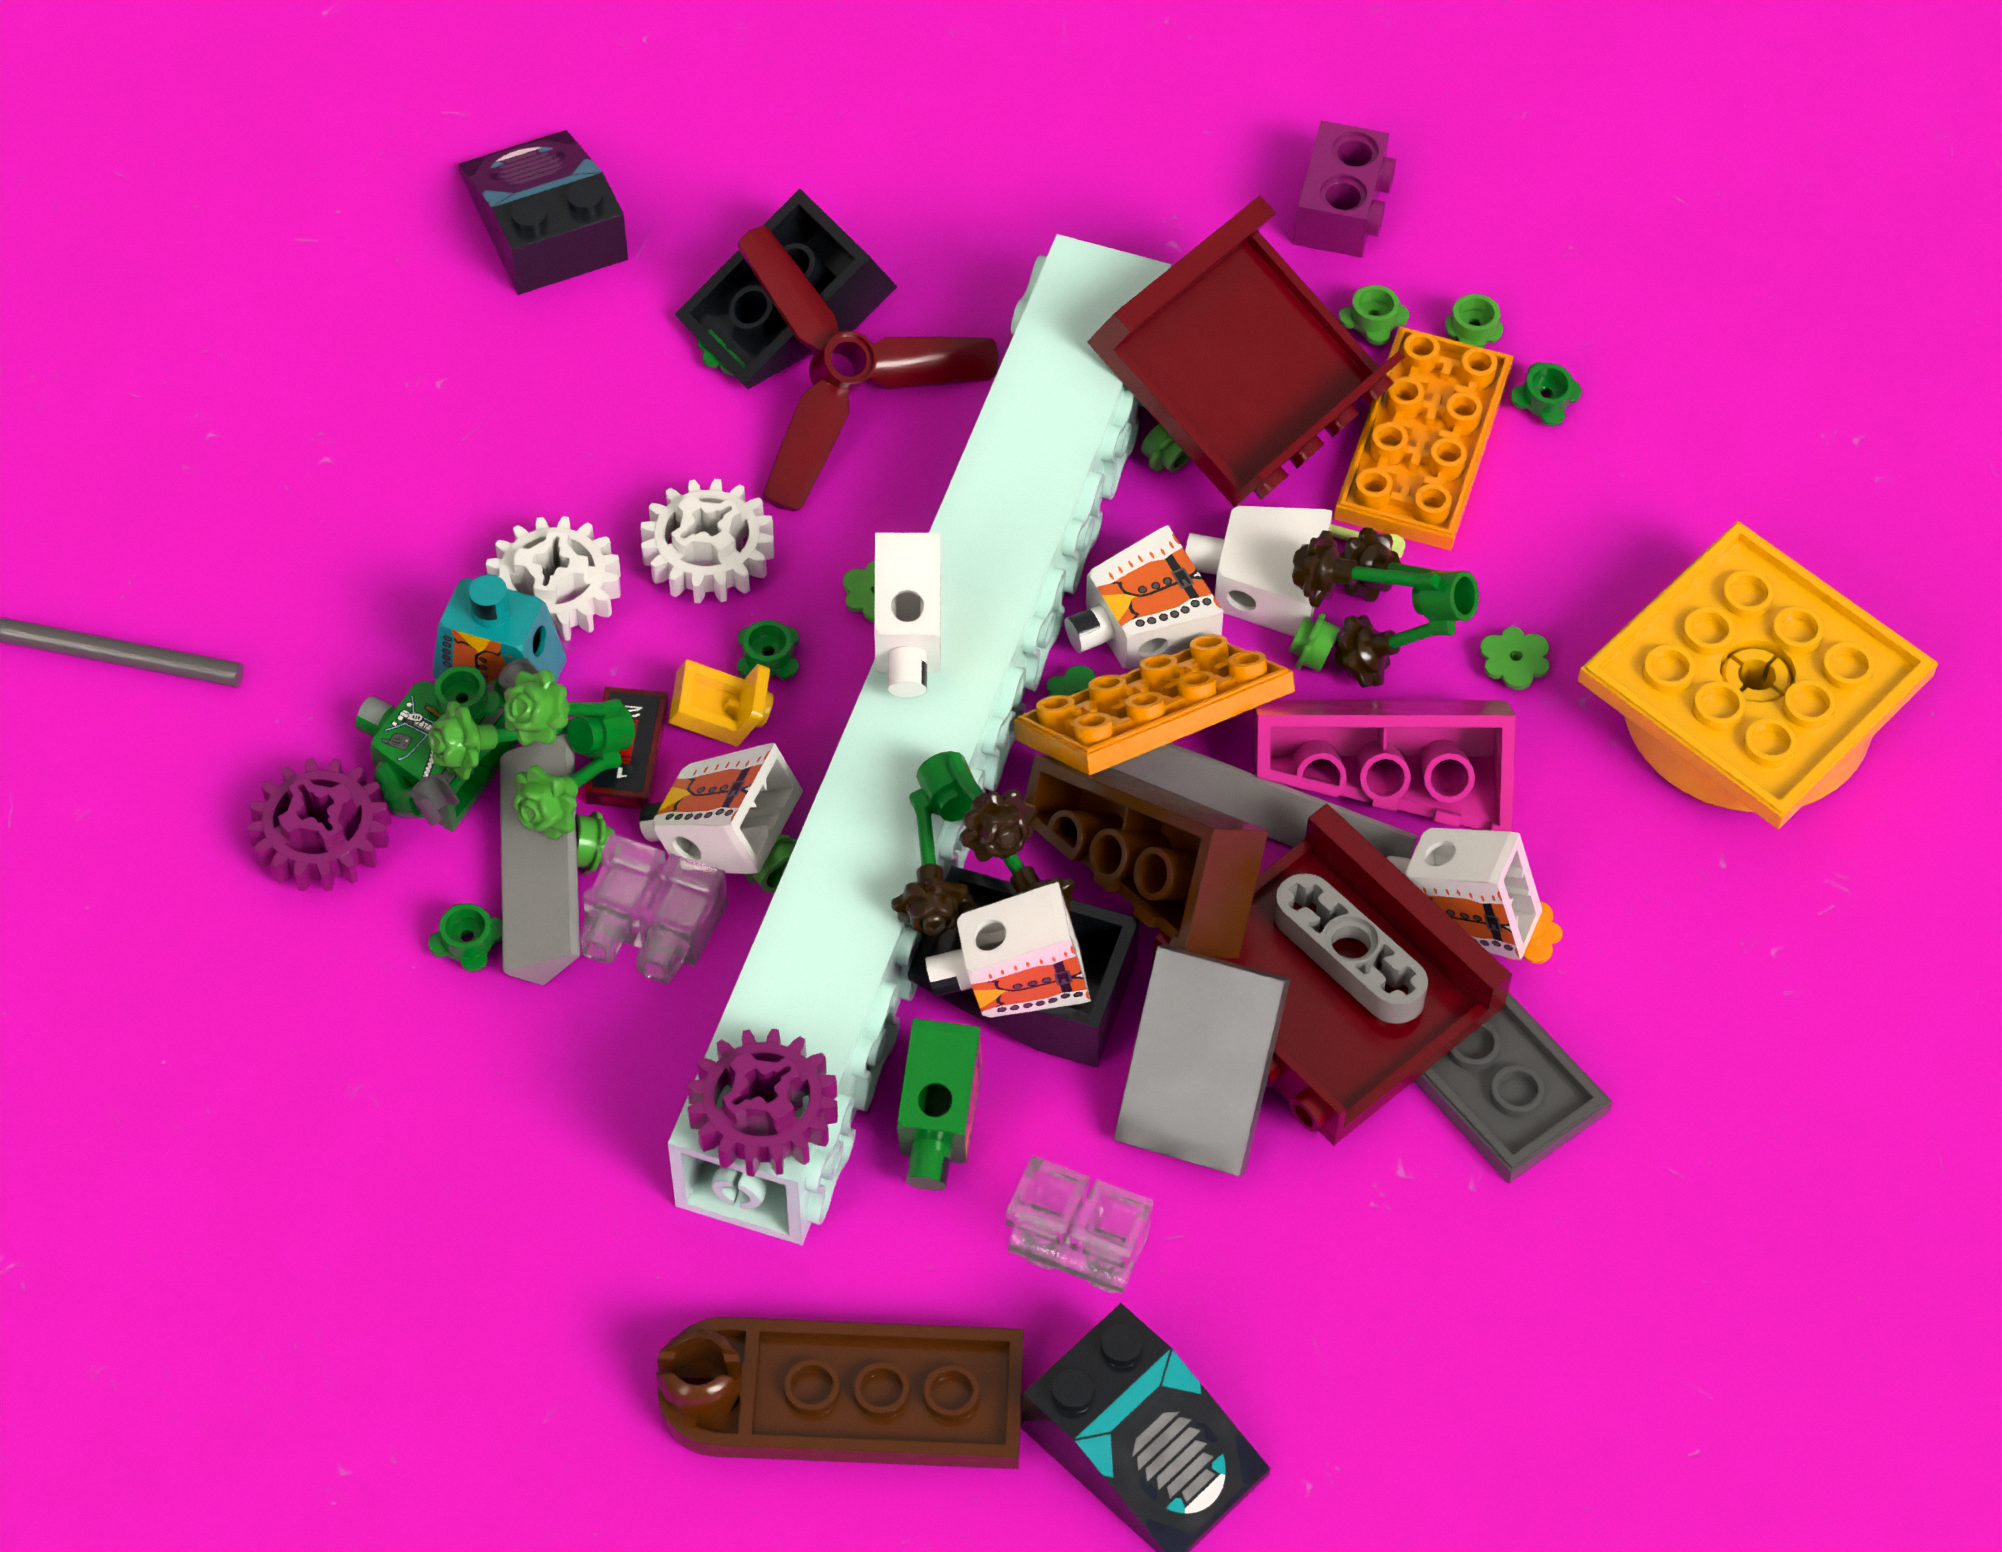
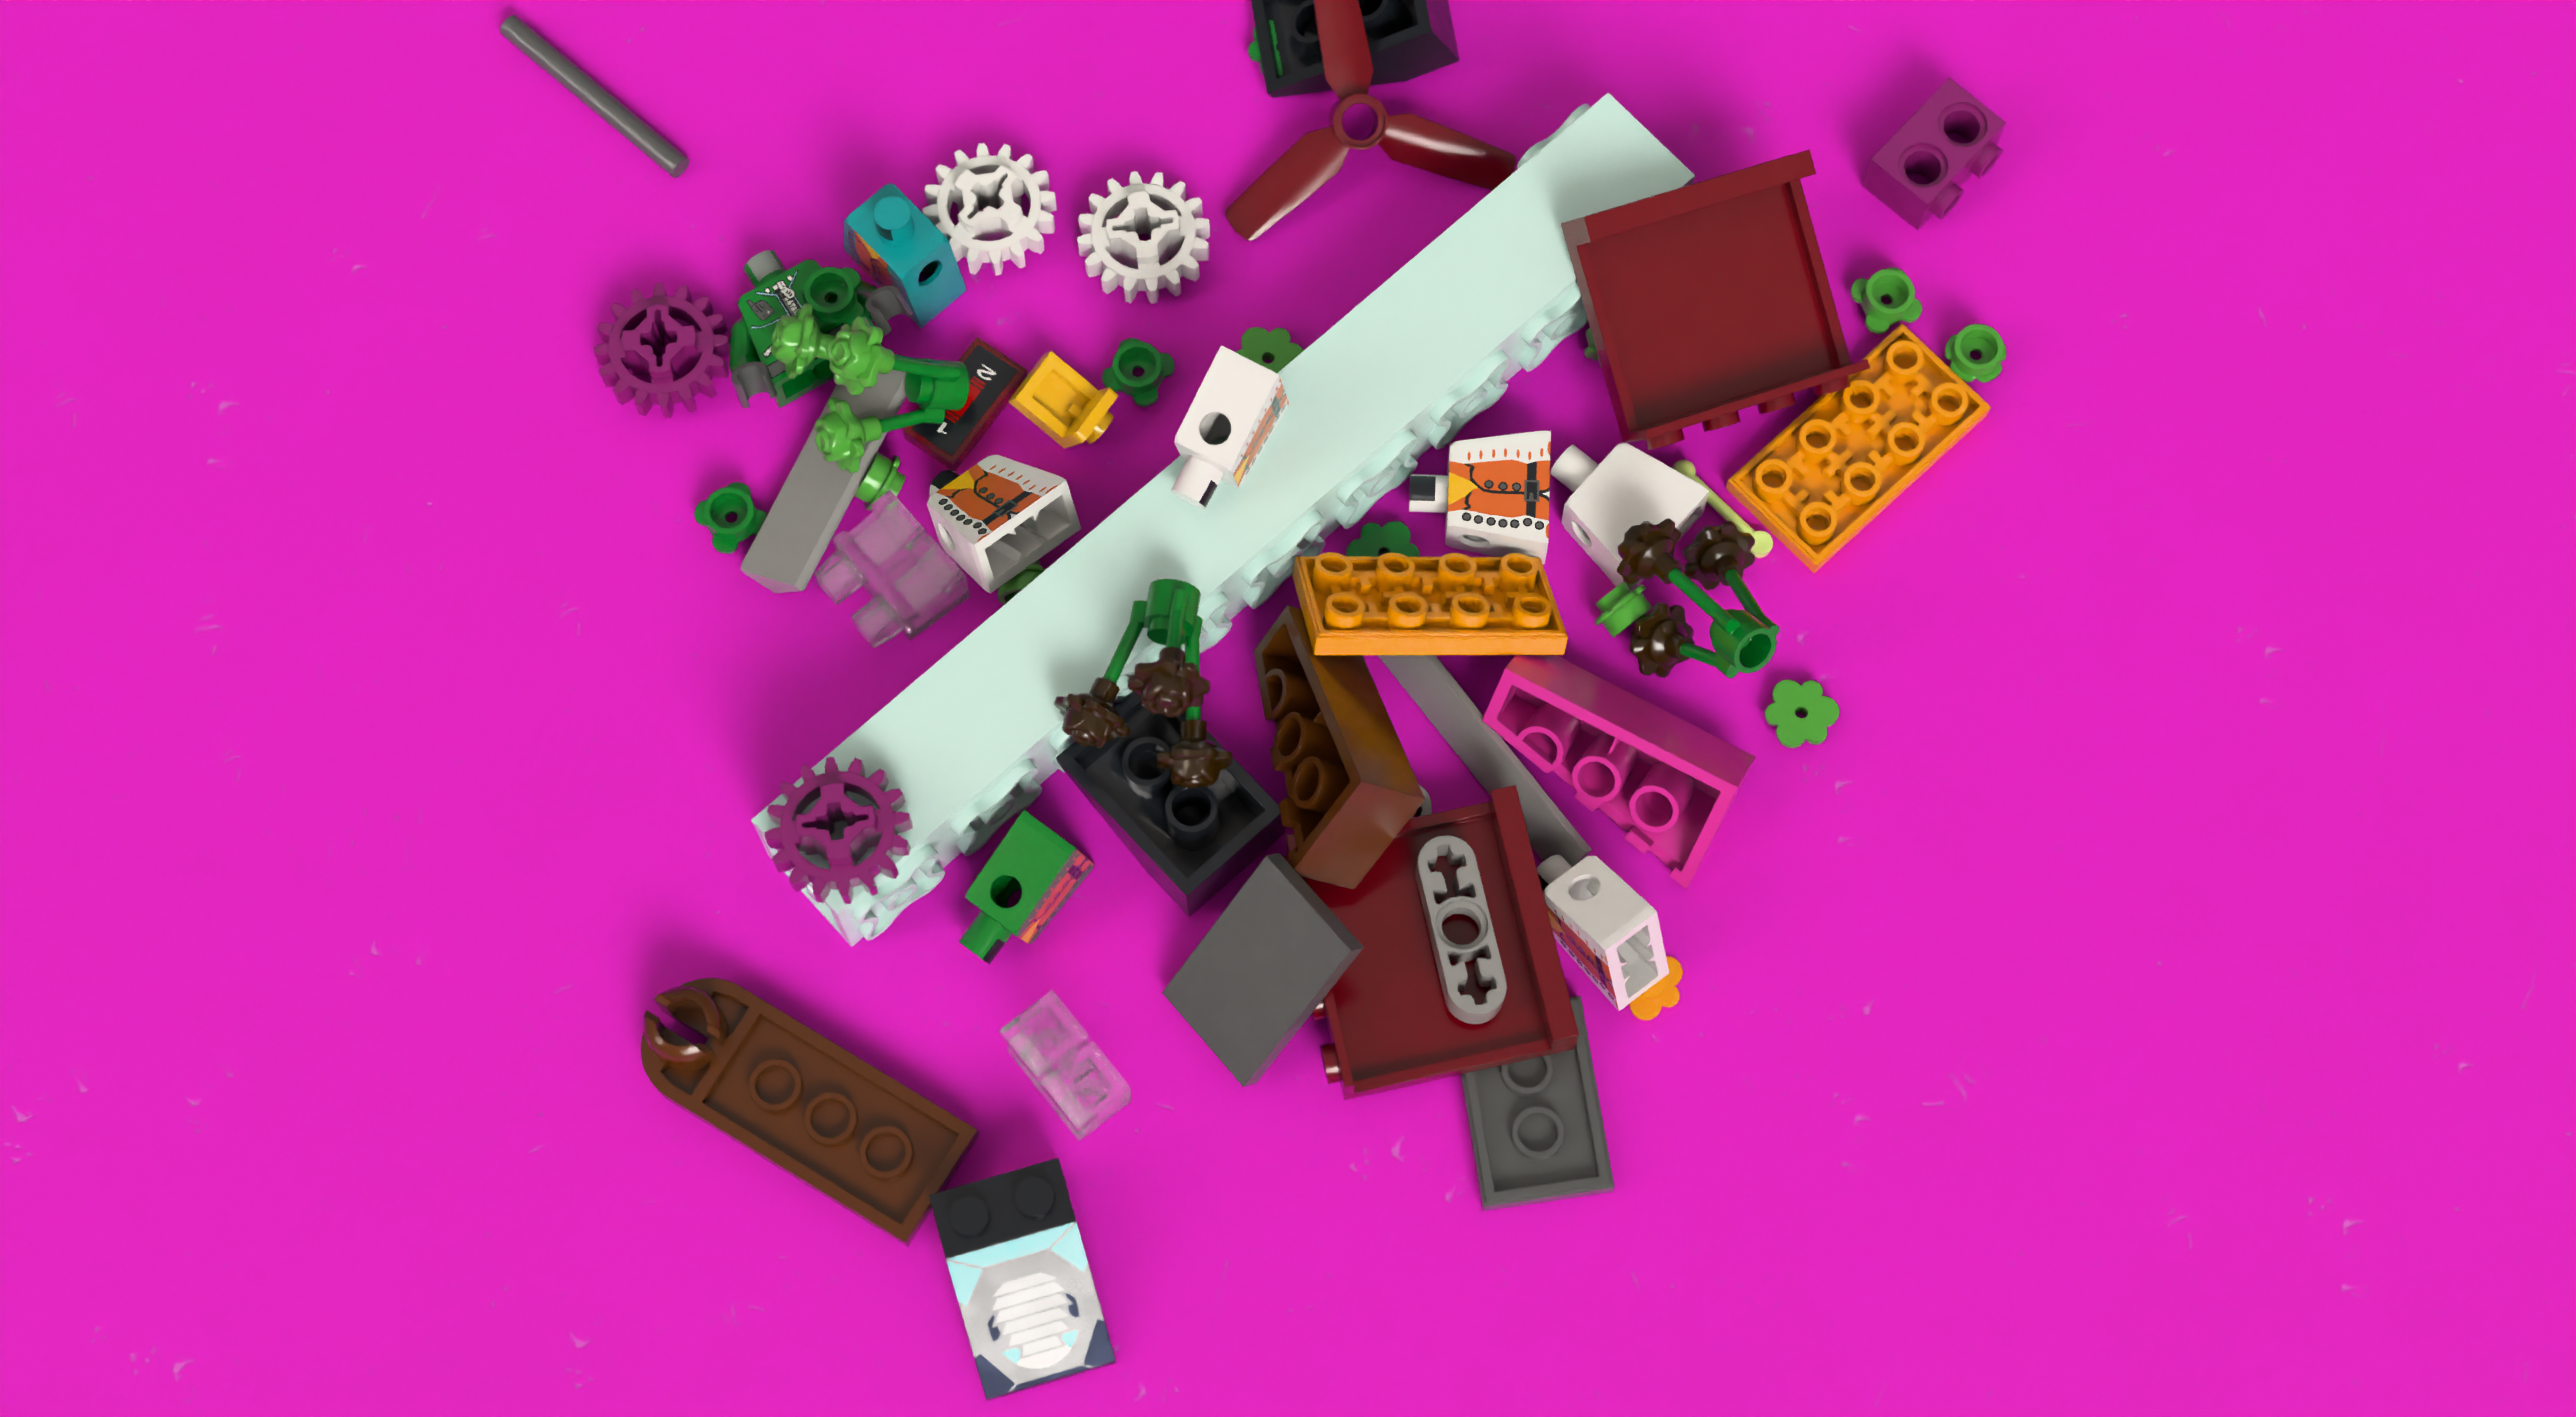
camera: 30 degrees right, 15 degrees up
(1015, 956) = (1139, 801): white torso -> none
(1552, 380) = (2001, 442): green plate -> none
(1755, 680) = (2037, 801): yellow piece -> none

